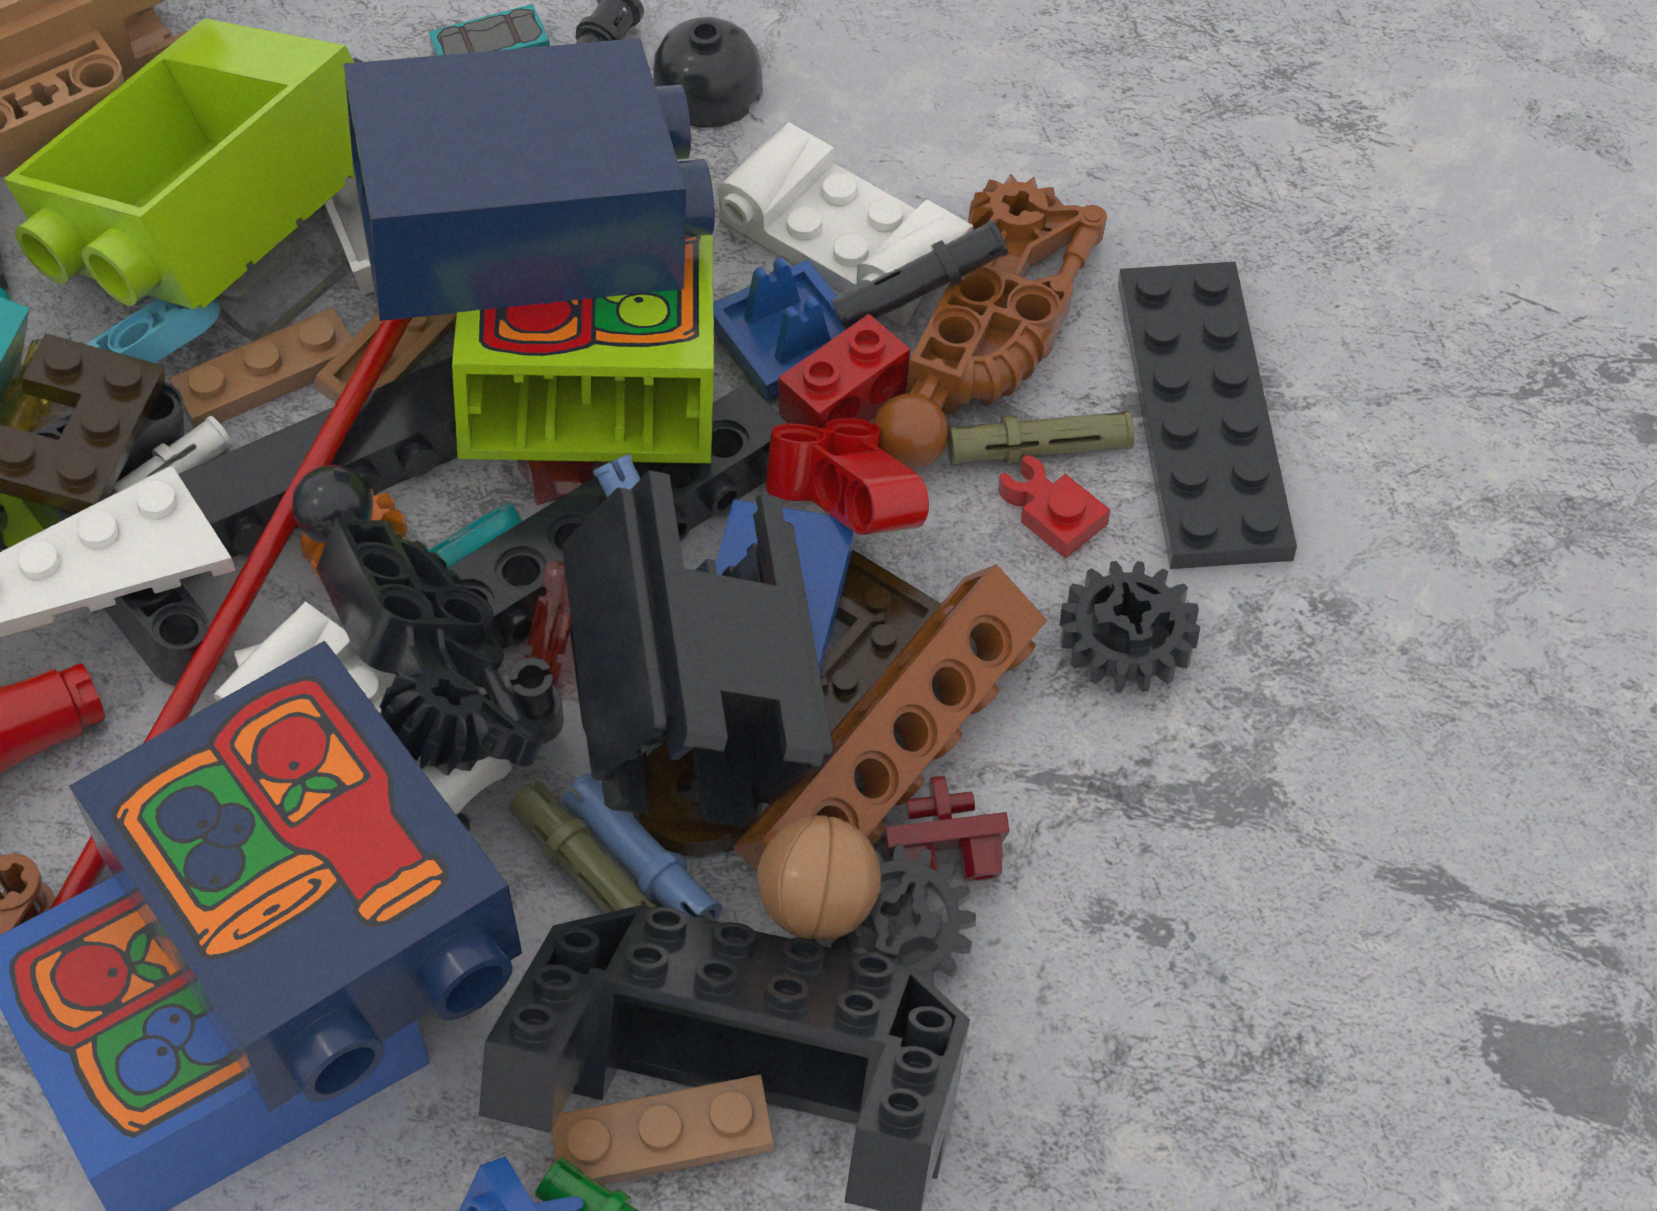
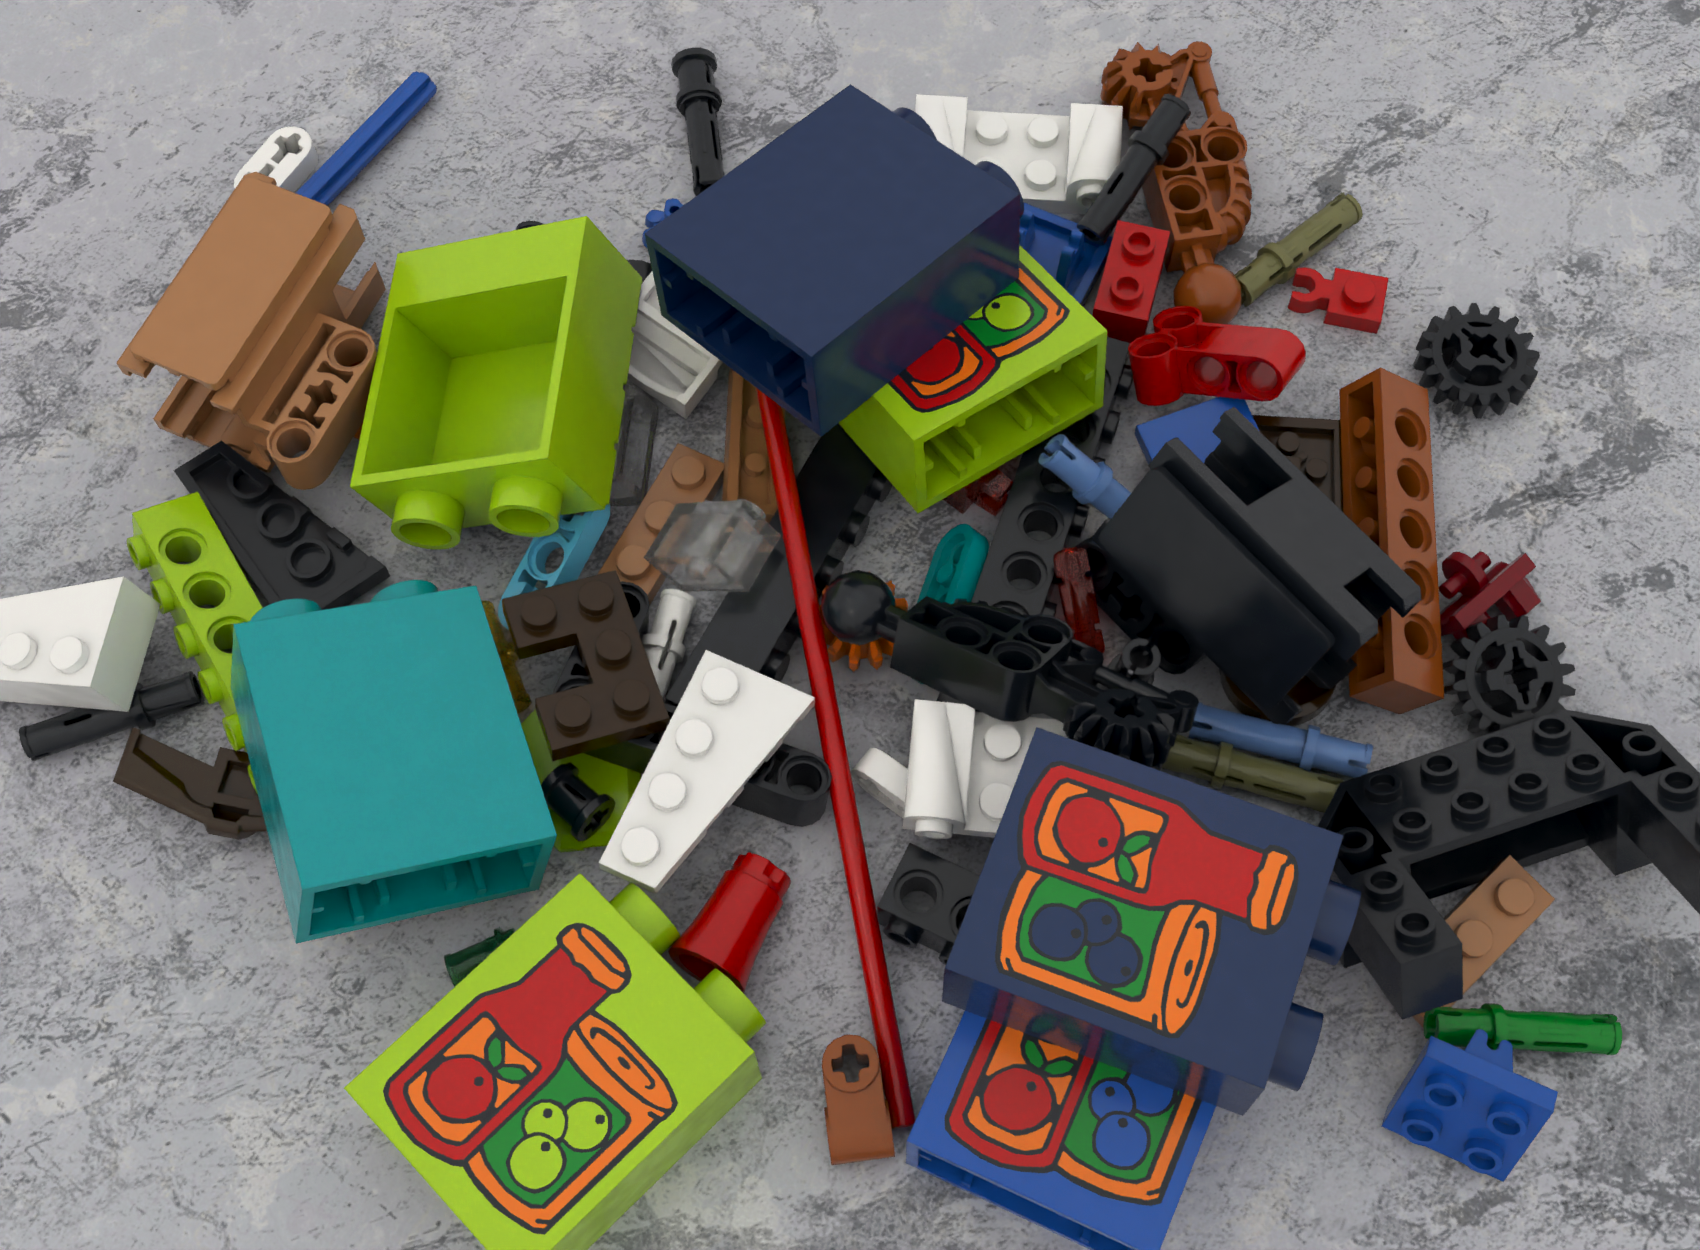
camera: 30 degrees left, 10 degrees up
(272, 396) = (713, 545): none -> clear brick
(494, 32) = (608, 150): tile -> none
(714, 66) = (801, 77): black cylinder -> none
(819, 878) = (1467, 684): medium nougat piece -> none
(1205, 416) = (1388, 165): black plate -> none

